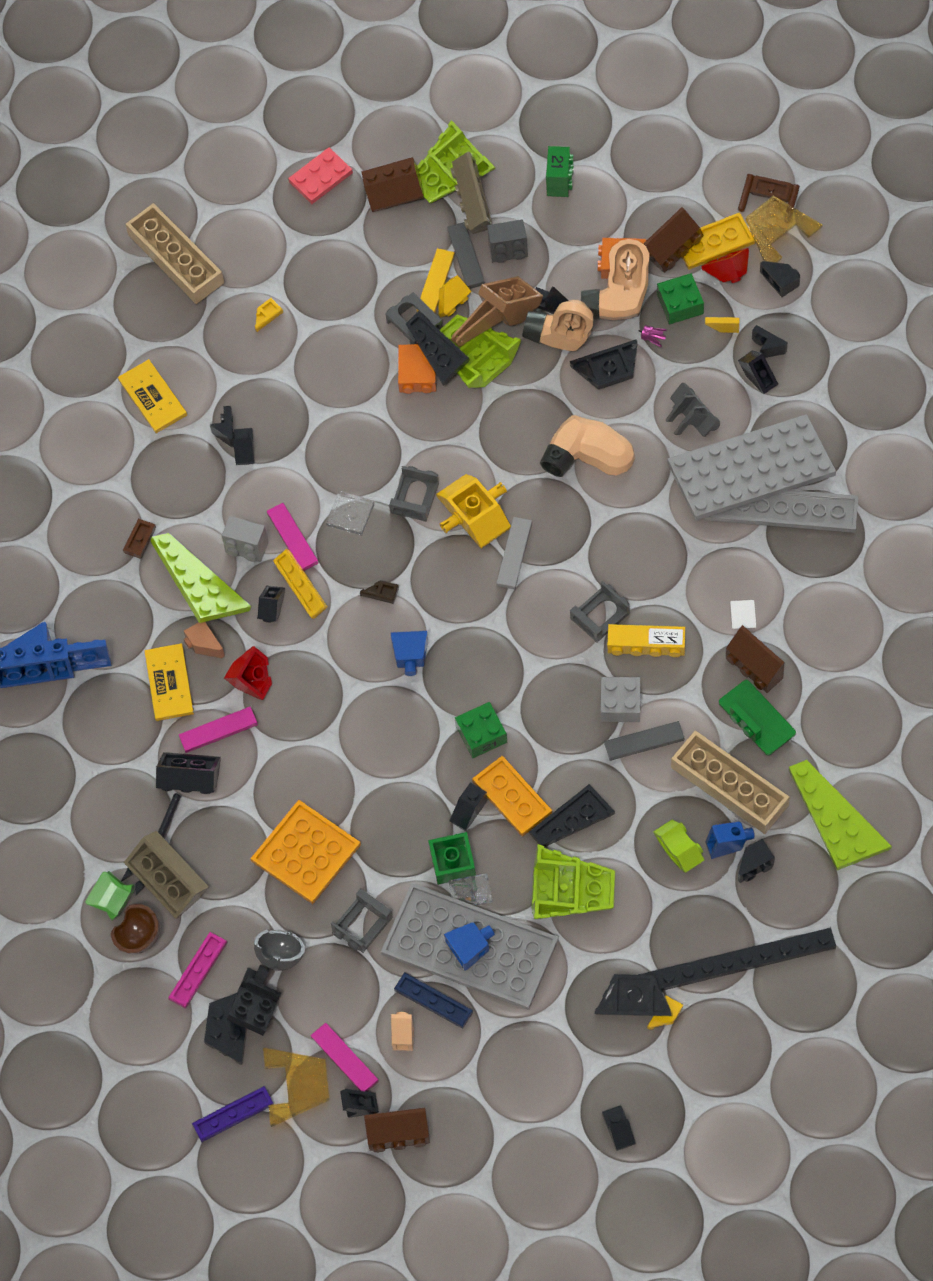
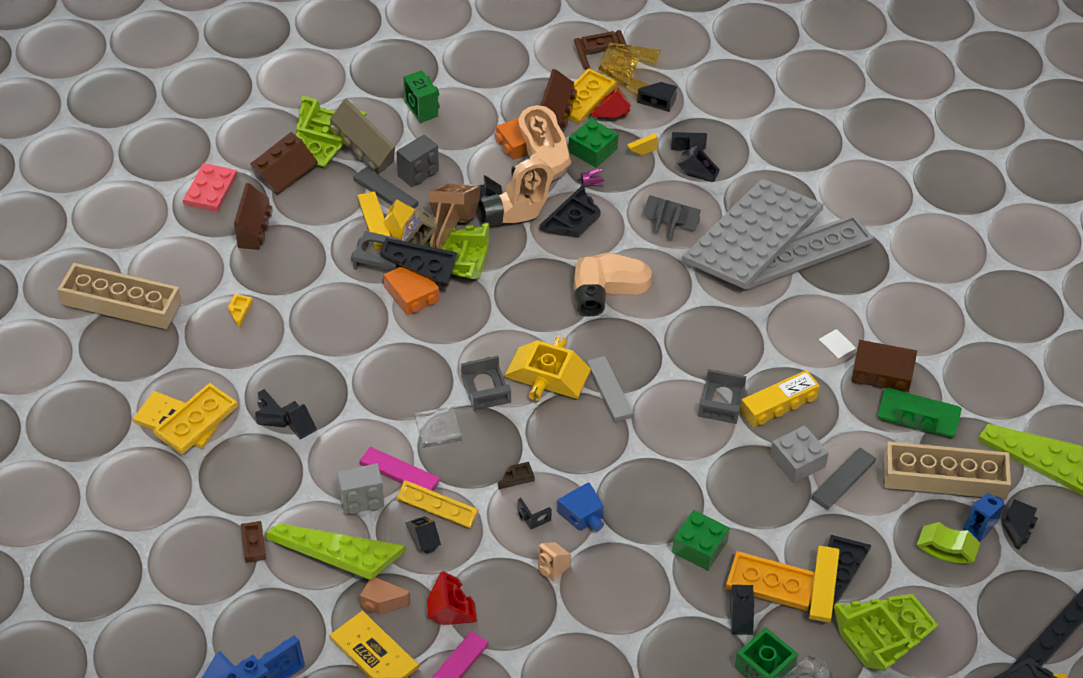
camera: 40 degrees left, 15 degrees down
(164, 403) = (195, 418): none -> yellow tile
(329, 229) = (252, 218): none -> reddish brown slope
(351, 682) = (553, 560): none -> light nougat slope
(363, 639) = (531, 519): none -> black bracket
(459, 309) = (419, 224): none -> dark tan torso
(547, 822) = (824, 584): none -> yellow tile

